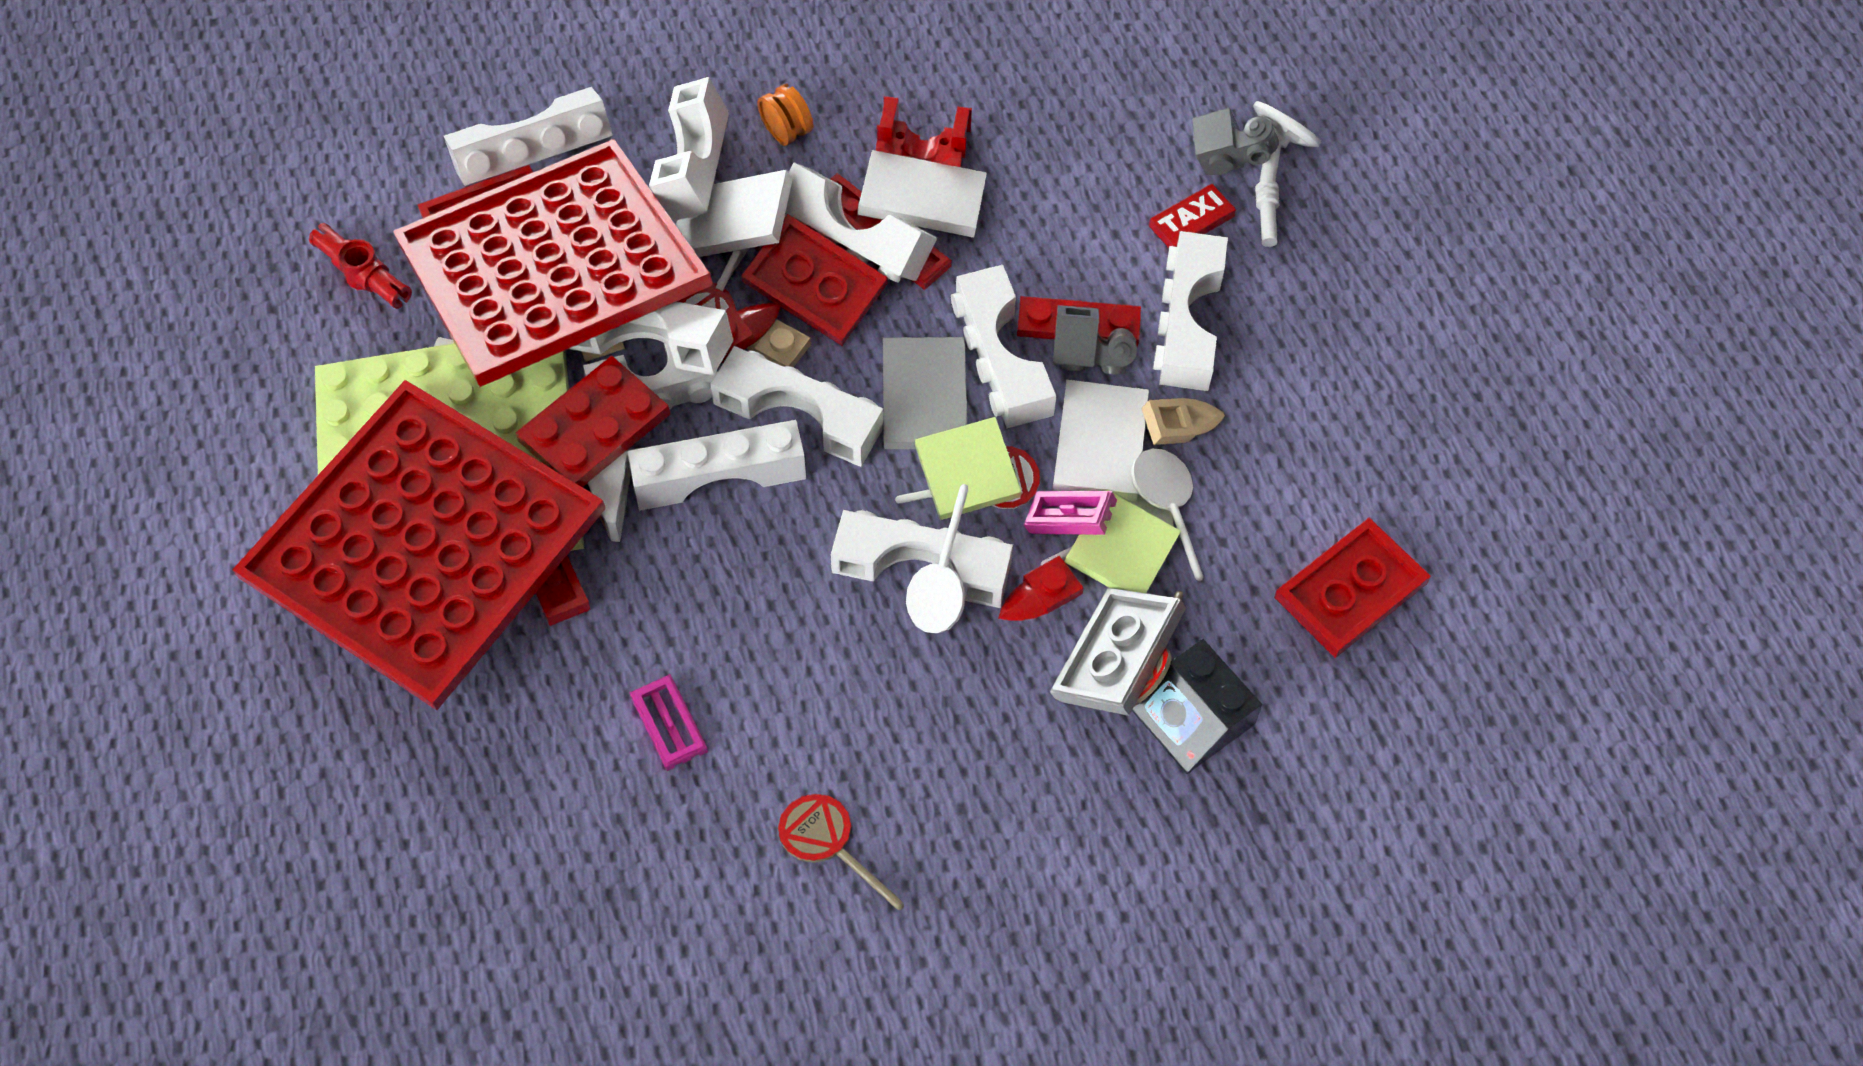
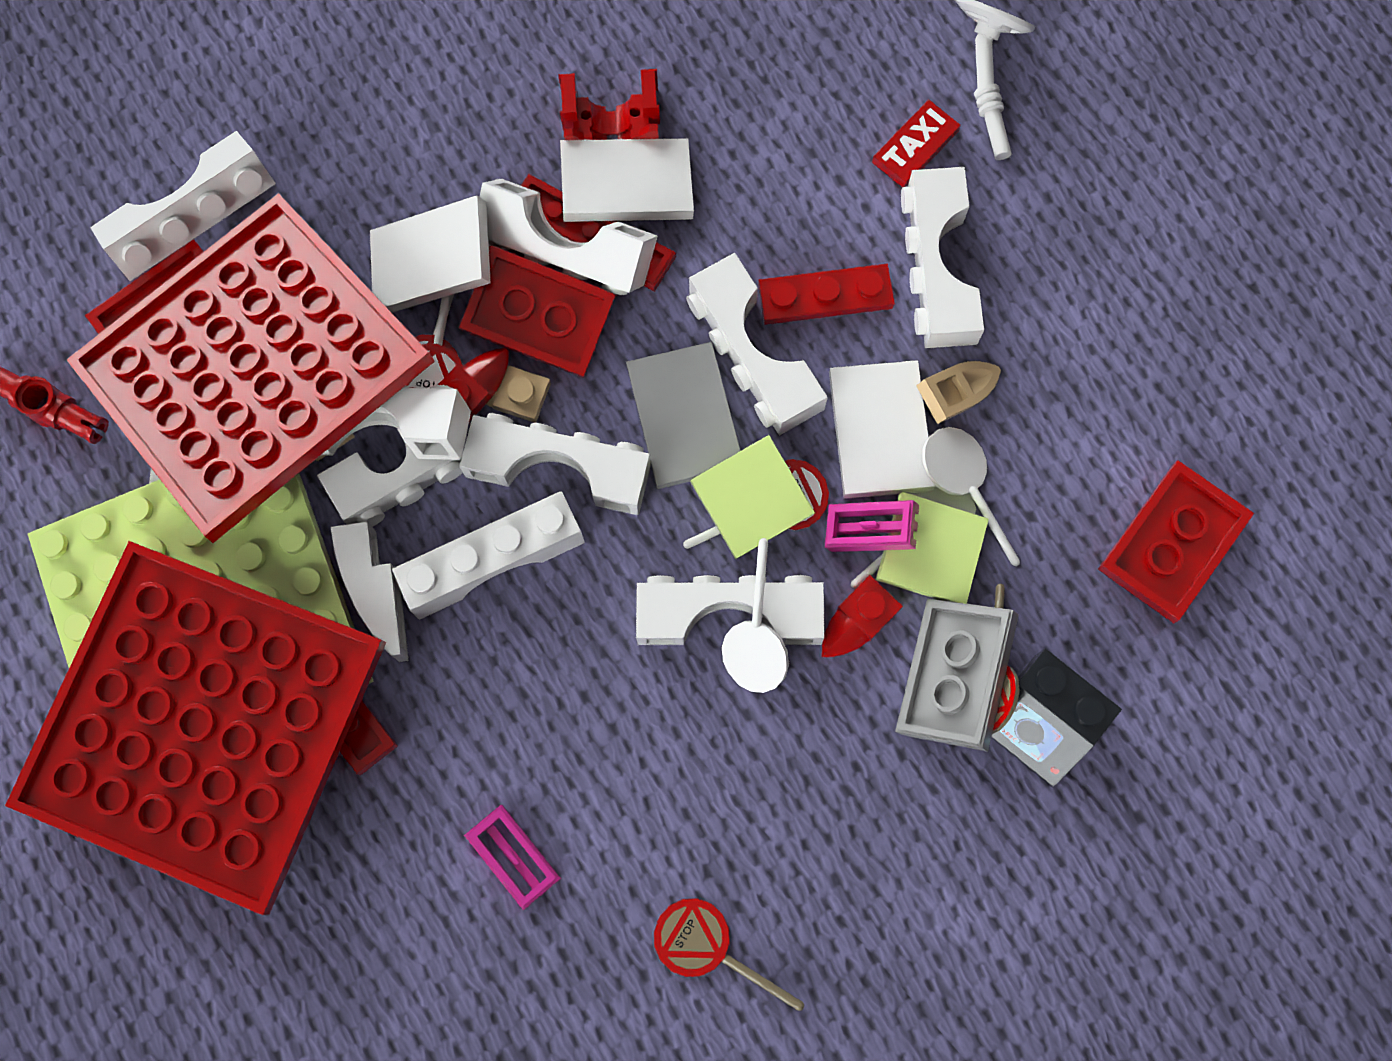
camera: 10 degrees left, 15 degrees up
(593, 422) = (346, 544): red plate -> none
(686, 179) = (370, 230): white arch -> none
(785, 114) = (456, 117): orange wheel -> none
(1080, 345) = (837, 326): dark grey brick -> none
(1225, 148) = (934, 56): dark grey brick -> none

